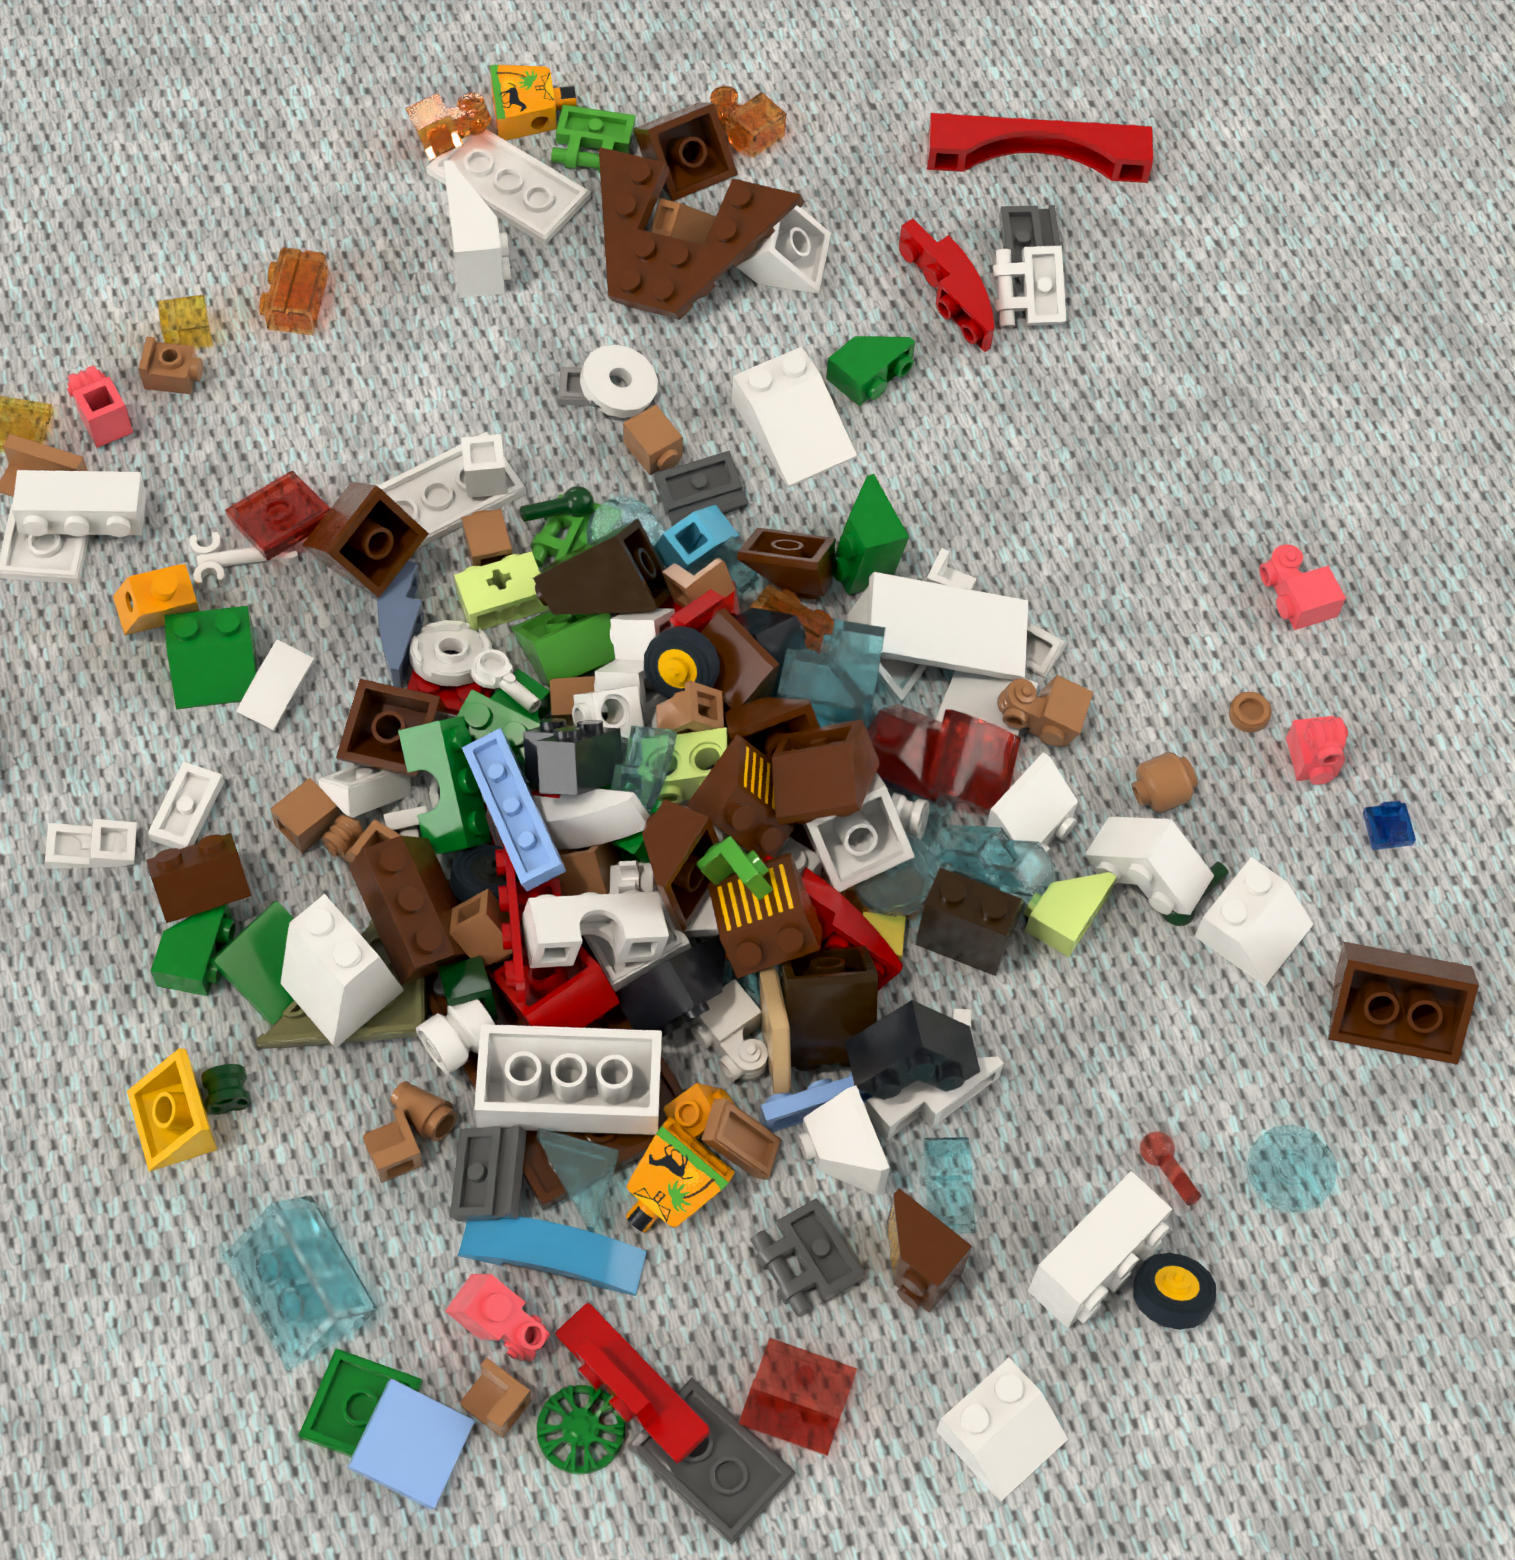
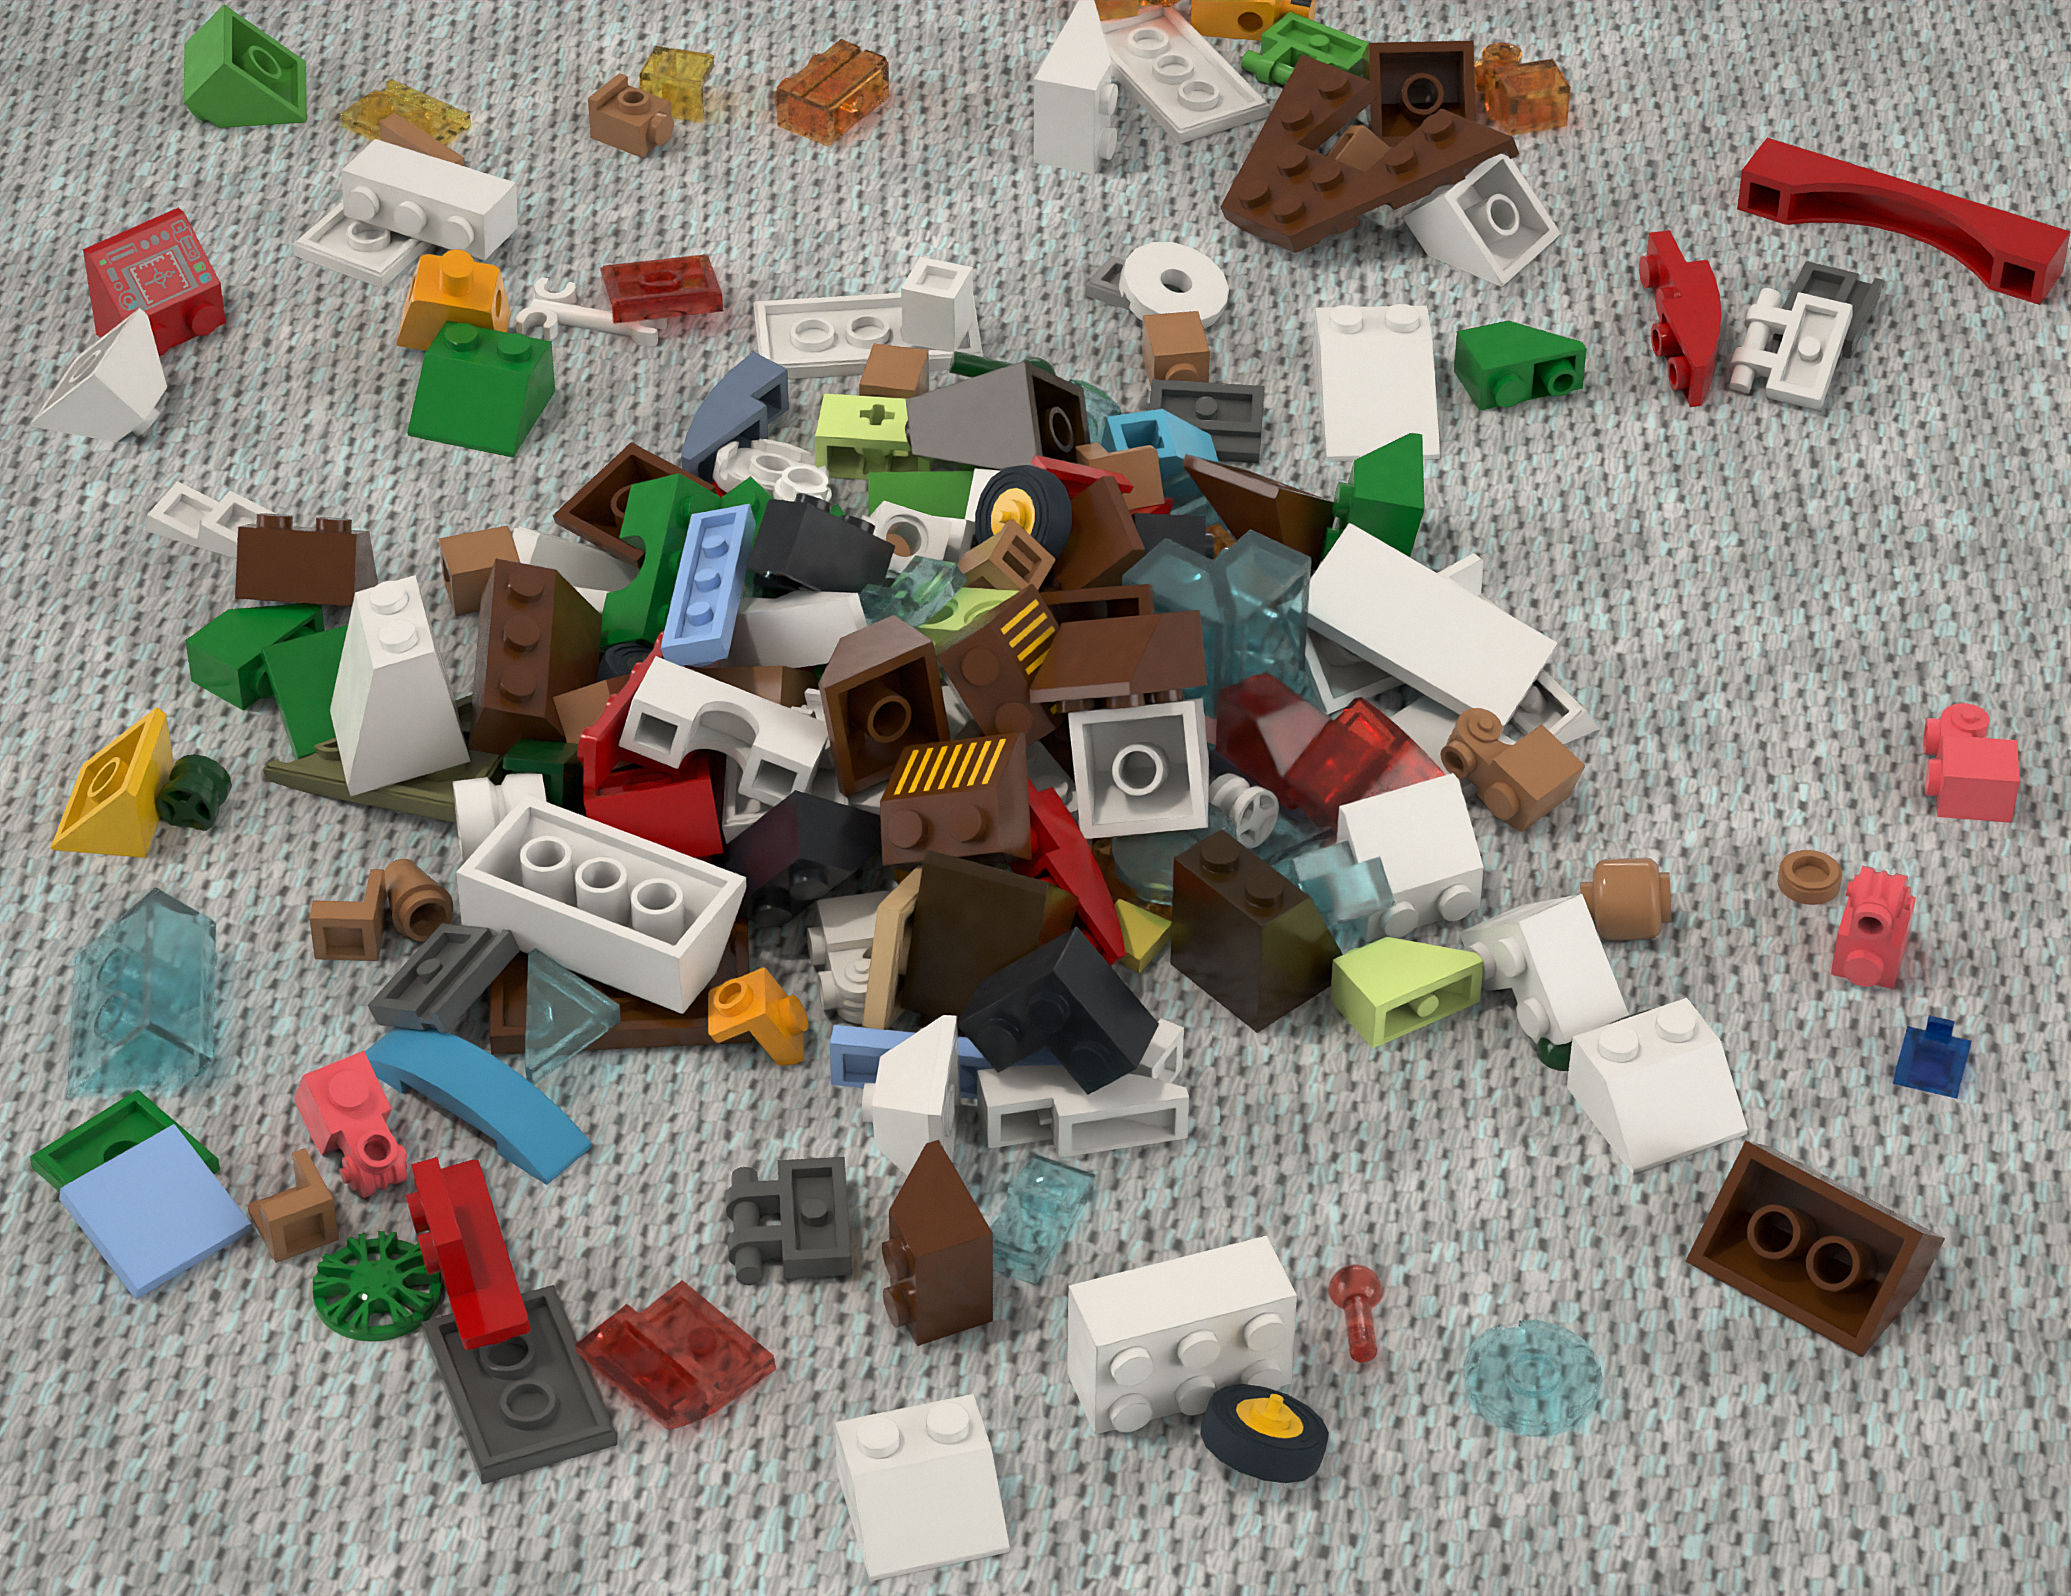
camera: 30 degrees right, 20 degrees down
(99, 406) = (519, 128): coral brick -> none
(186, 806) = (370, 505): white plate -> none
(275, 685) = (535, 438): white slope -> none
(366, 537) = (733, 309): reddish brown slope -> none
(674, 1178) = (669, 1059): light orange torso -> none
(729, 857) = (935, 712): bright green bracket -> none
(741, 1139) = (785, 1054): medium nougat tile -> none

